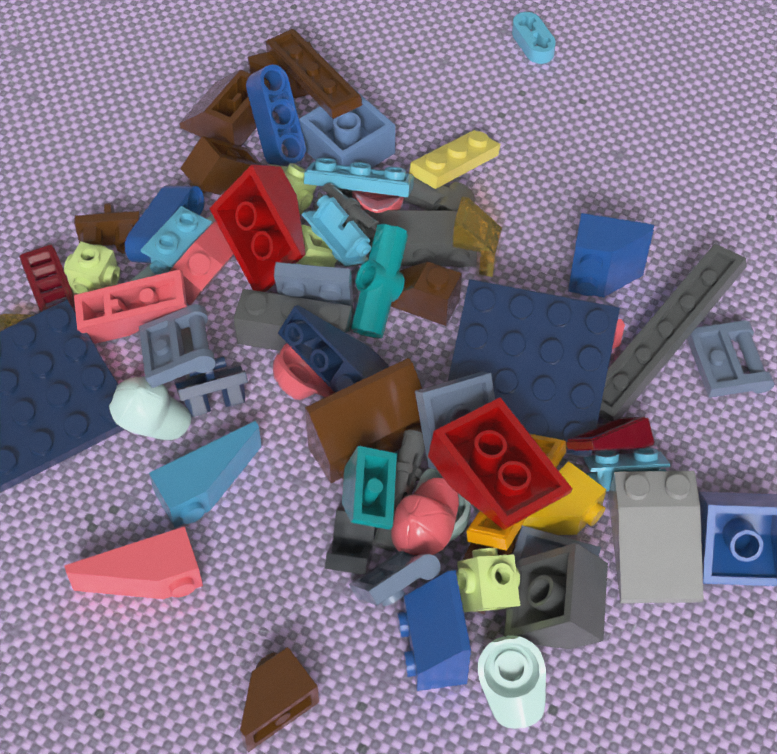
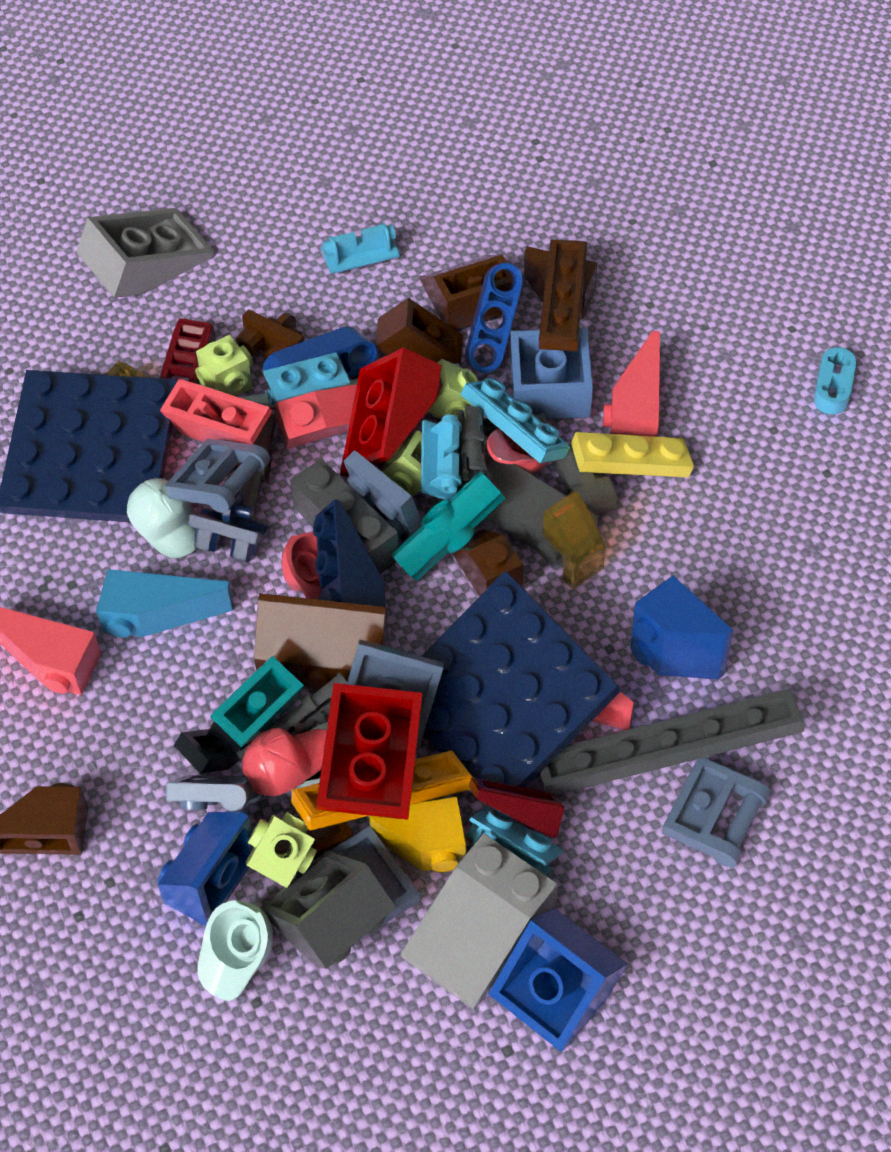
camera: 40 degrees right, 0 degrees up
(113, 129) = (349, 252): none -> medium azure hinge
(420, 119) = (636, 394): none -> coral slope

